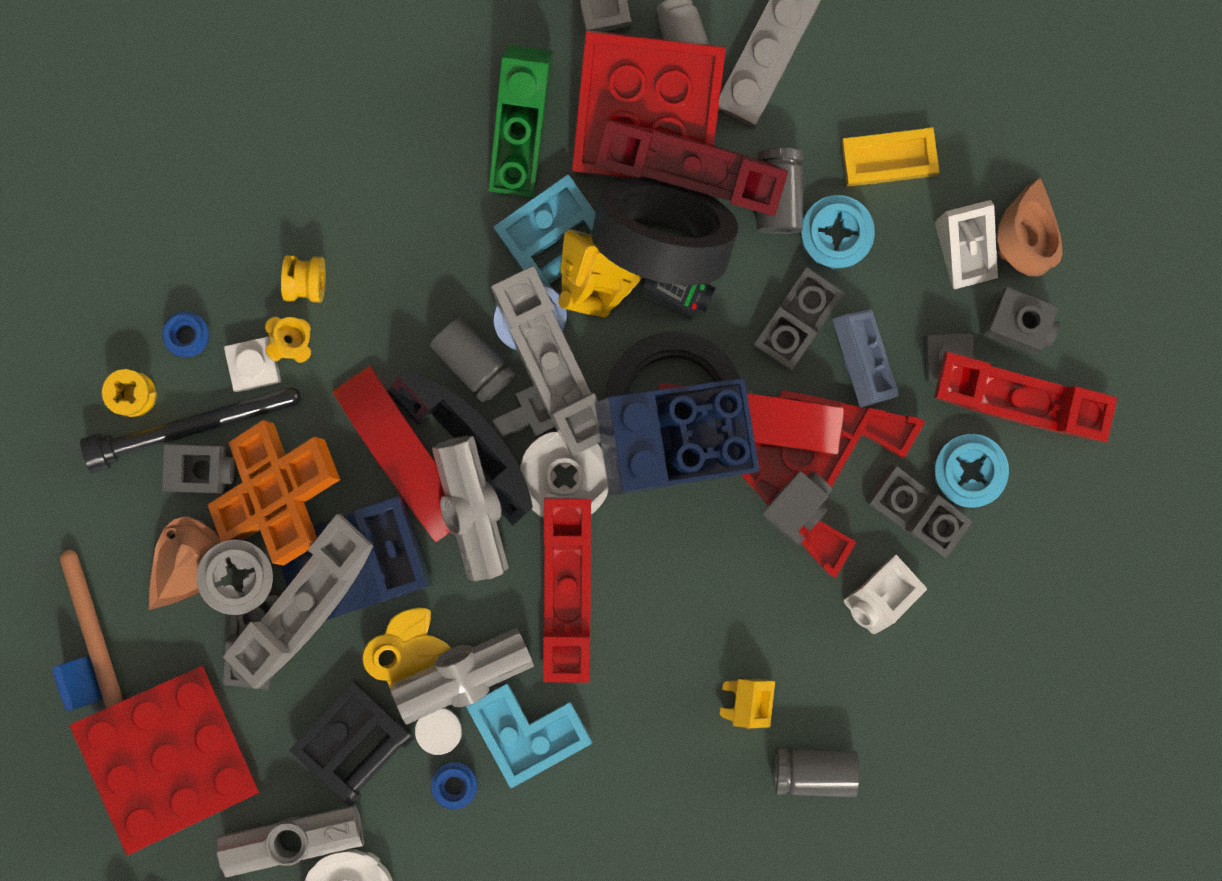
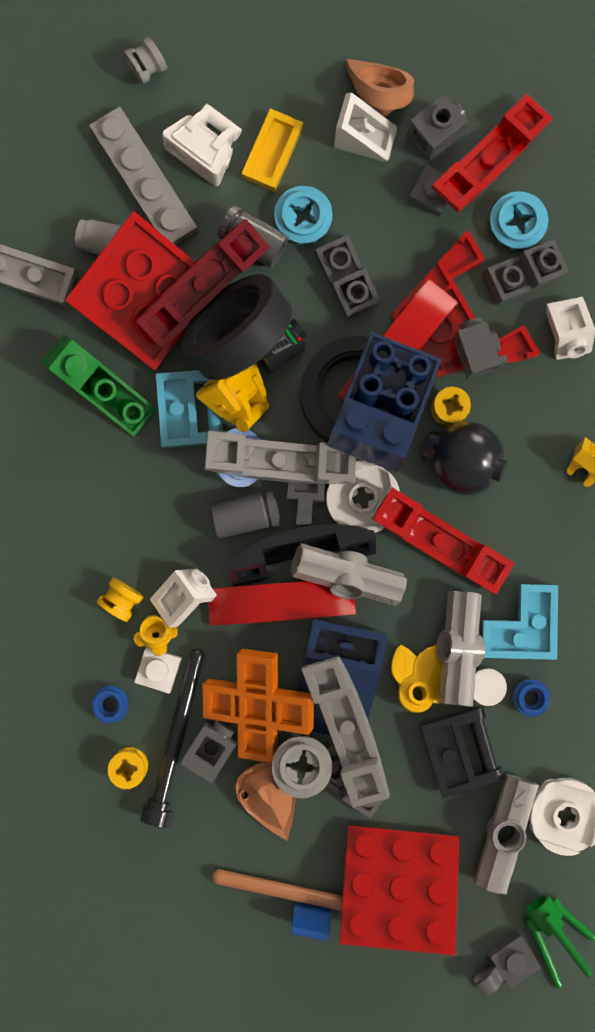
camera: 70 degrees left, 0 degrees up
(346, 342) = (181, 595): none -> white bracket
(672, 562) = (465, 457): none -> black brick
(716, 509) = (446, 412): none -> yellow wheel
(845, 78) = (199, 146): none -> white piece
(865, 357) = (401, 246): sand blue plate -> none

